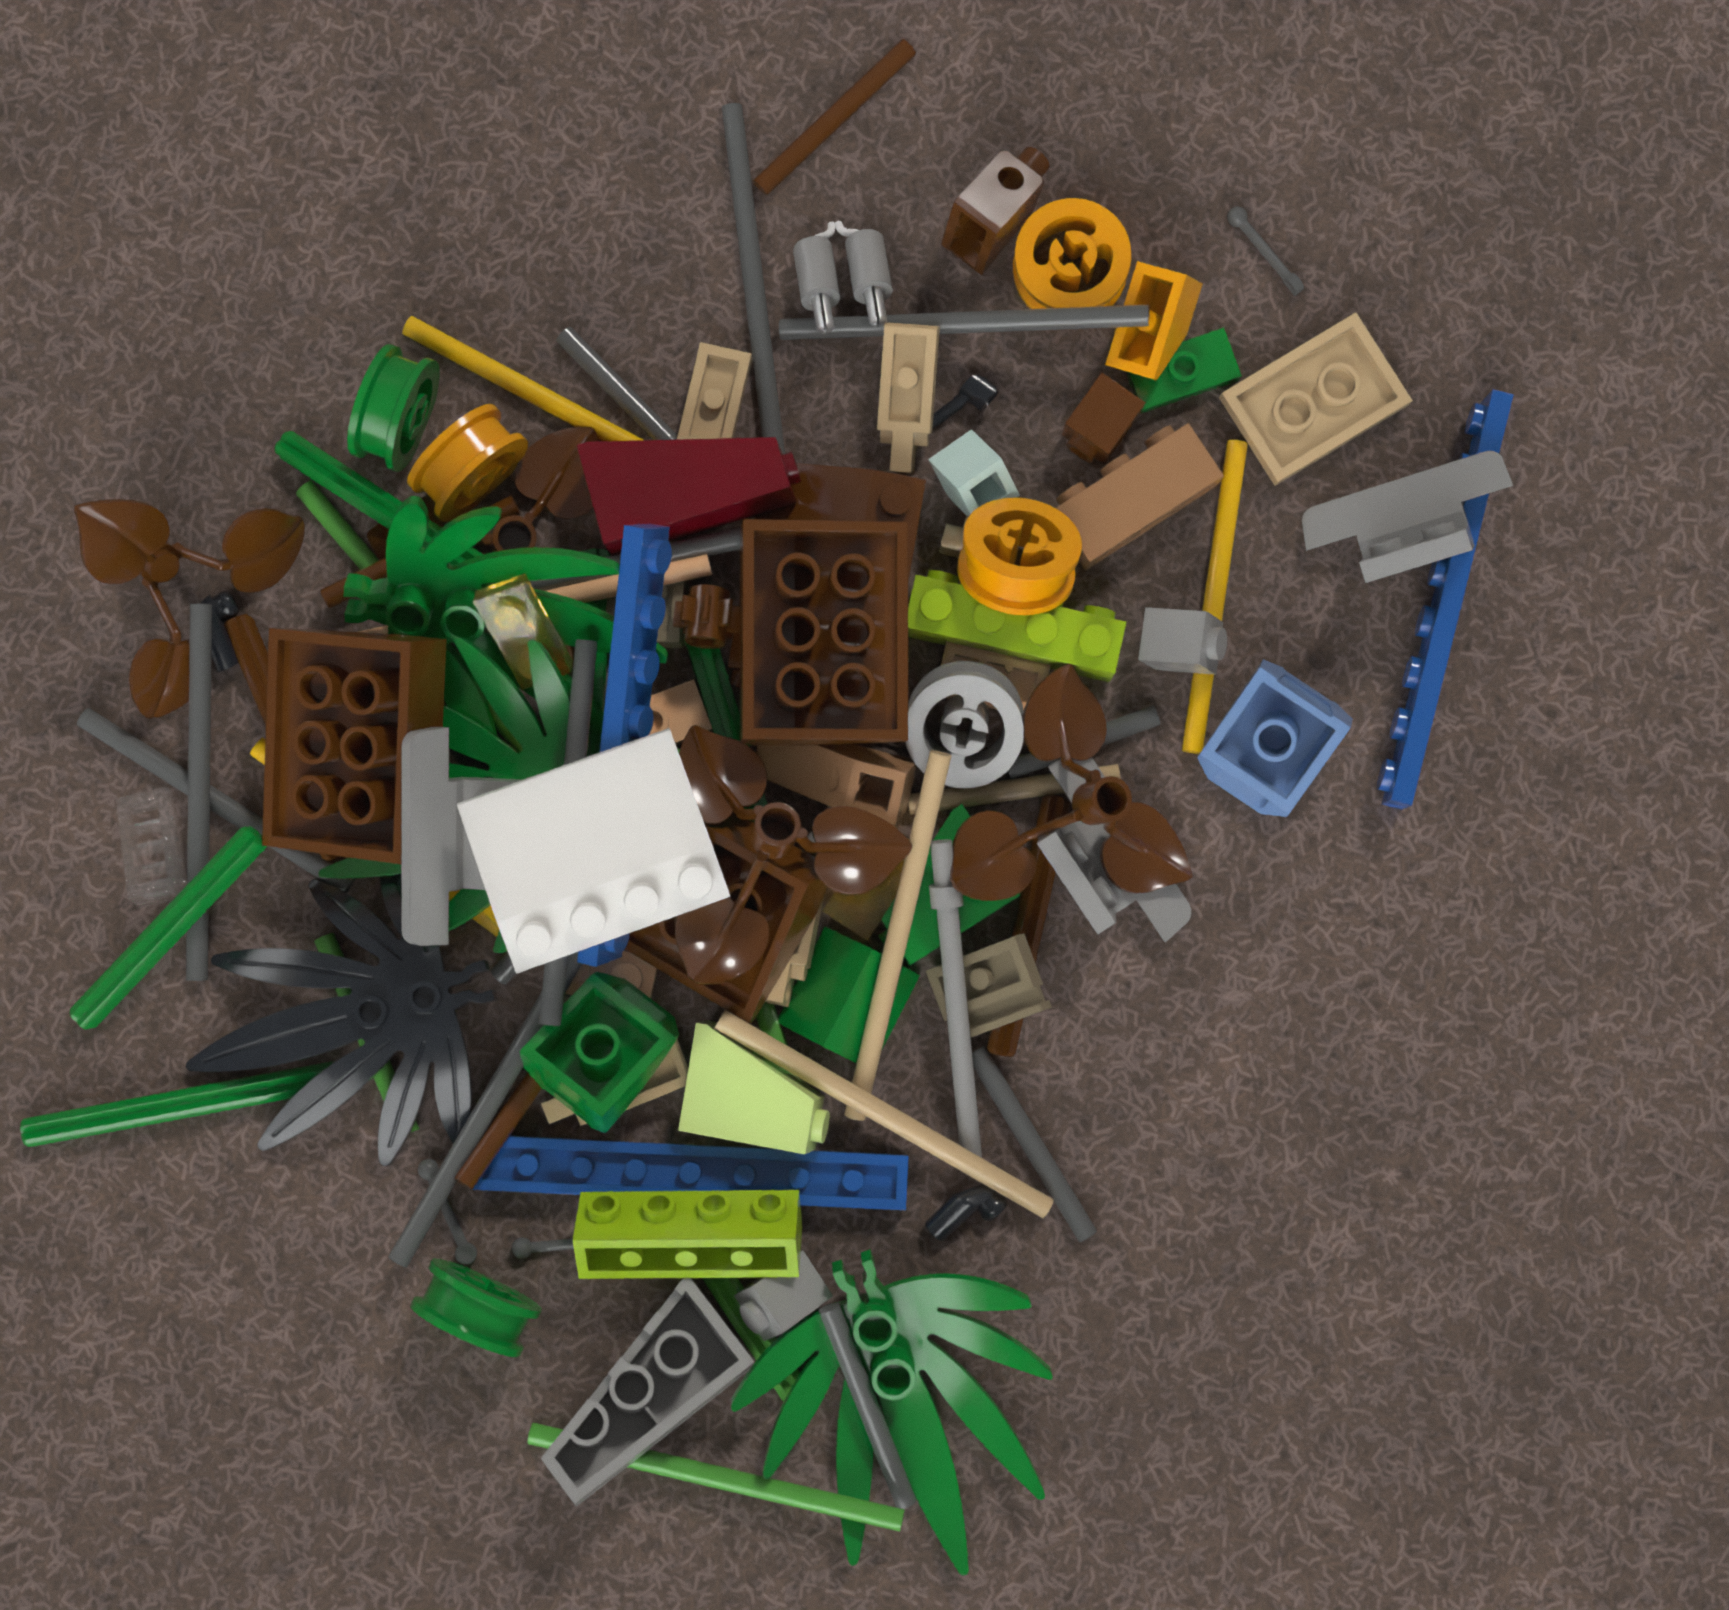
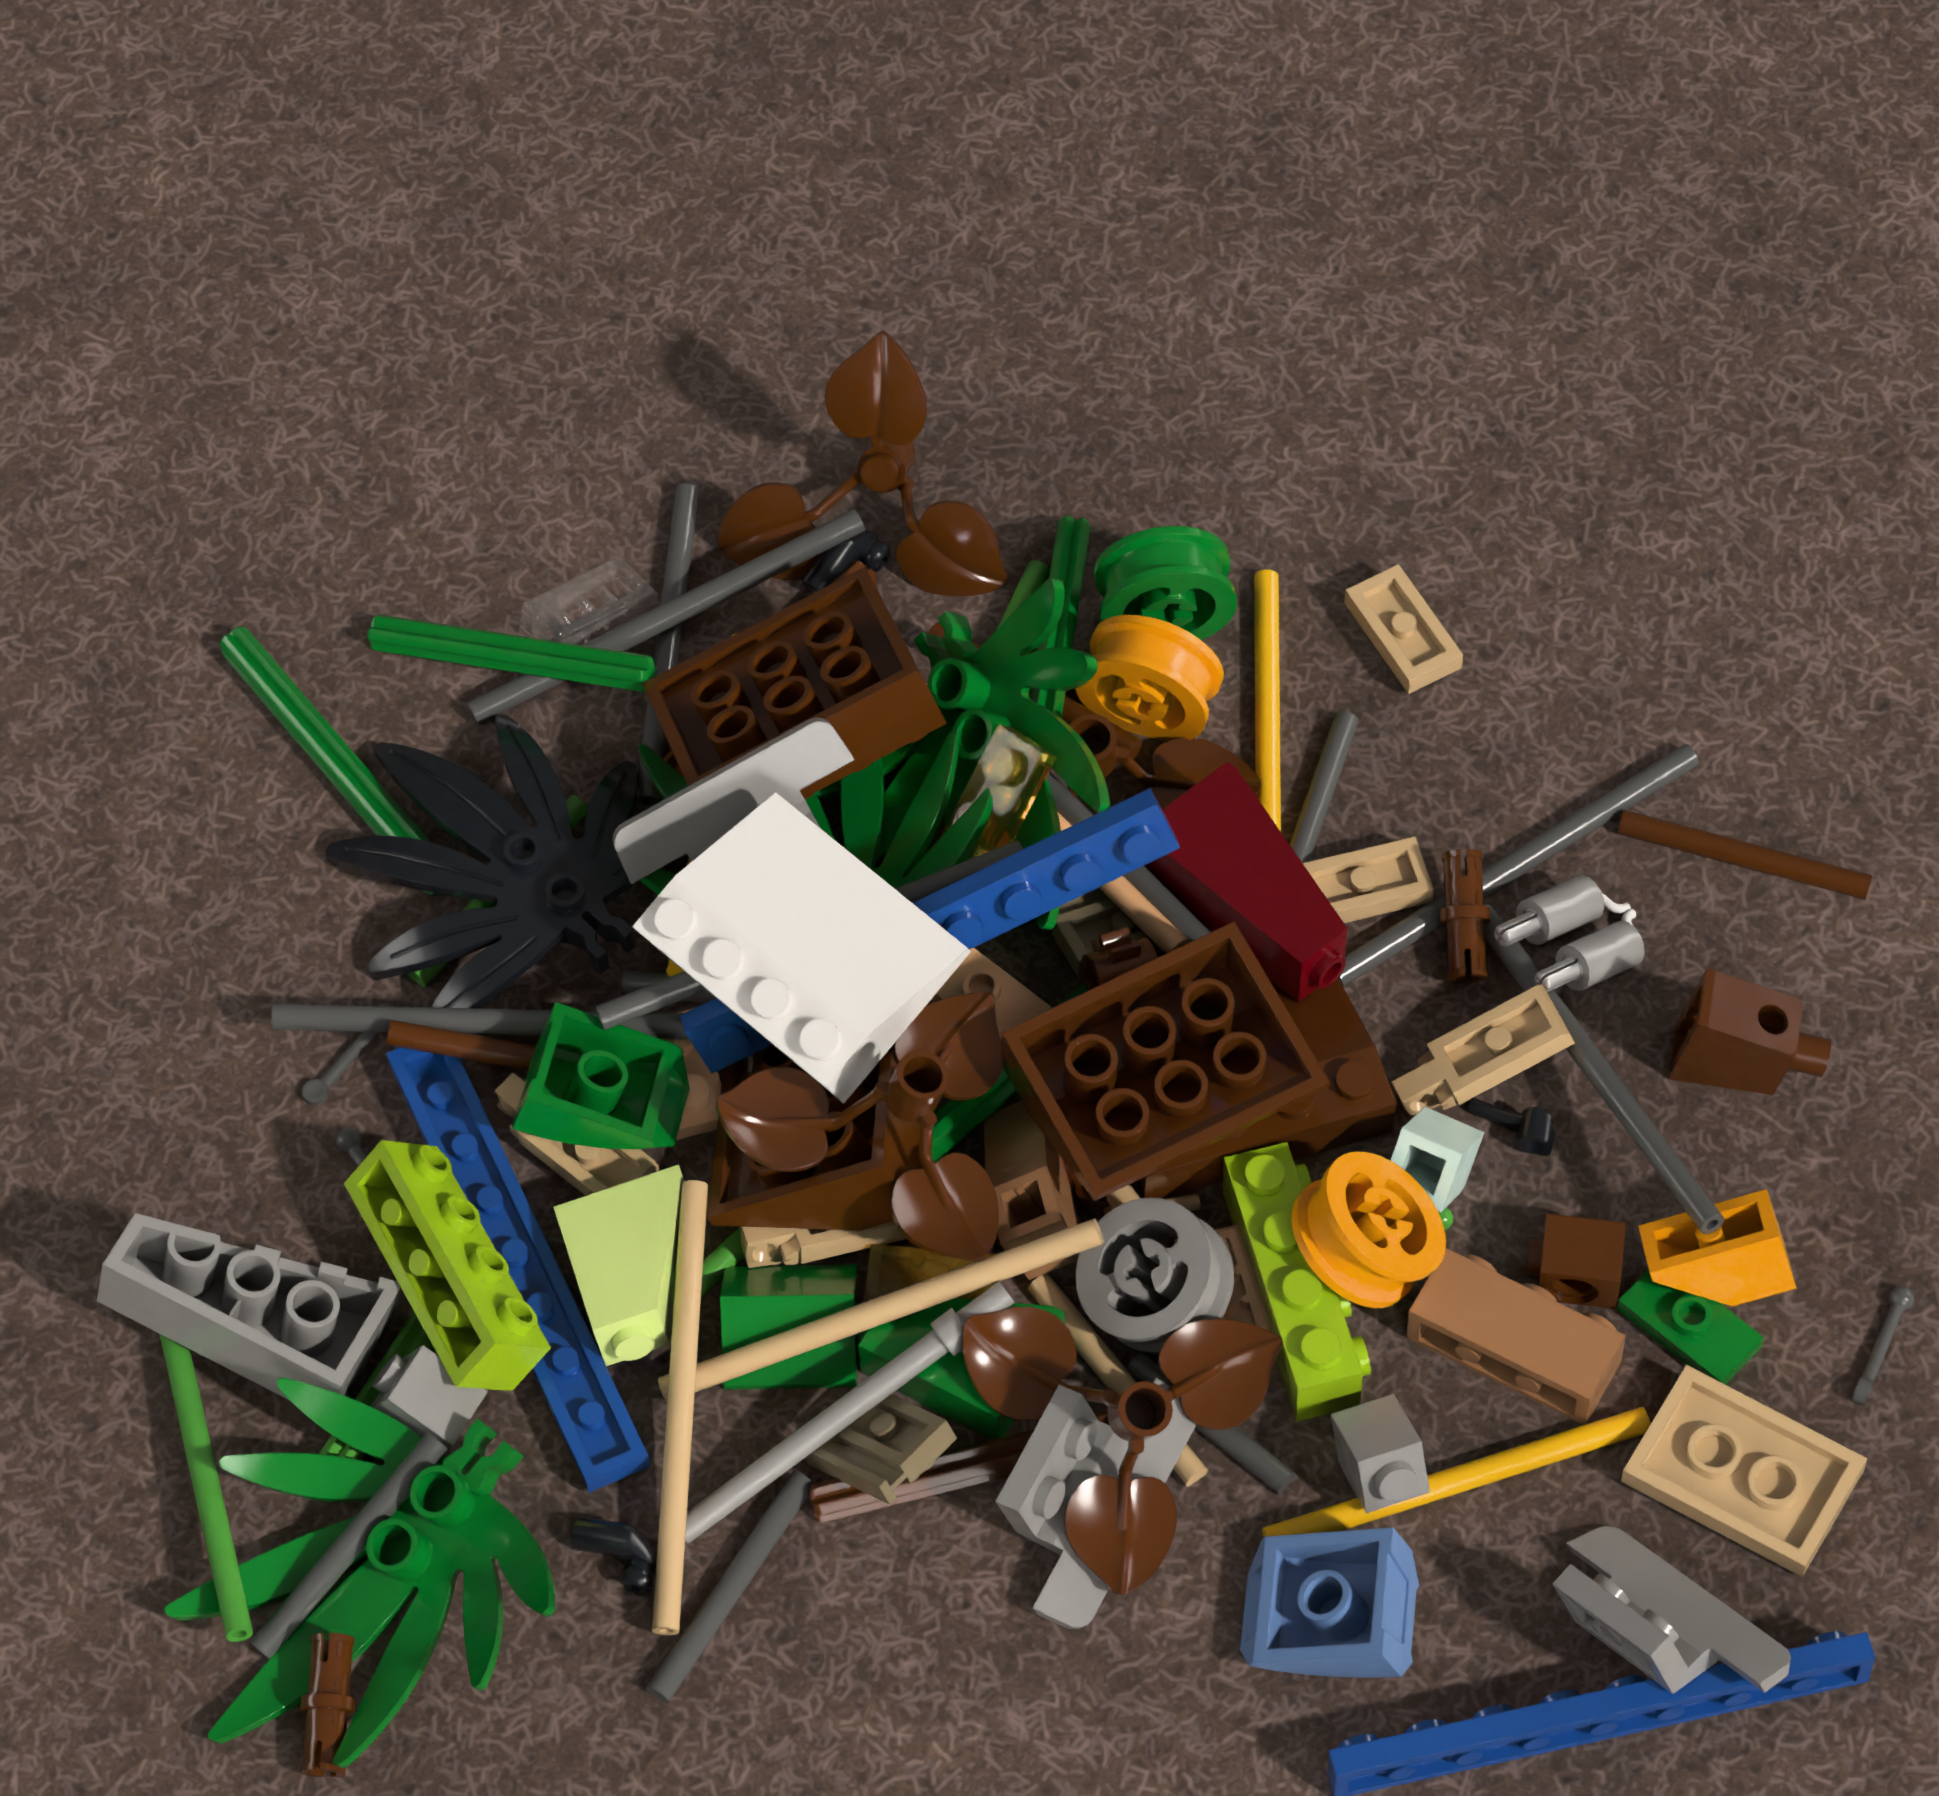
camera: 65 degrees right, 25 degrees down
(475, 1308) = (262, 1104): green wheel -> none
(513, 251) = (1403, 629): none -> tan plate
(785, 343) = (1464, 916): none -> reddish brown pin
(980, 1477) = (327, 1703): none -> reddish brown pin
(1089, 235) = (1708, 1123): light orange wheel -> none

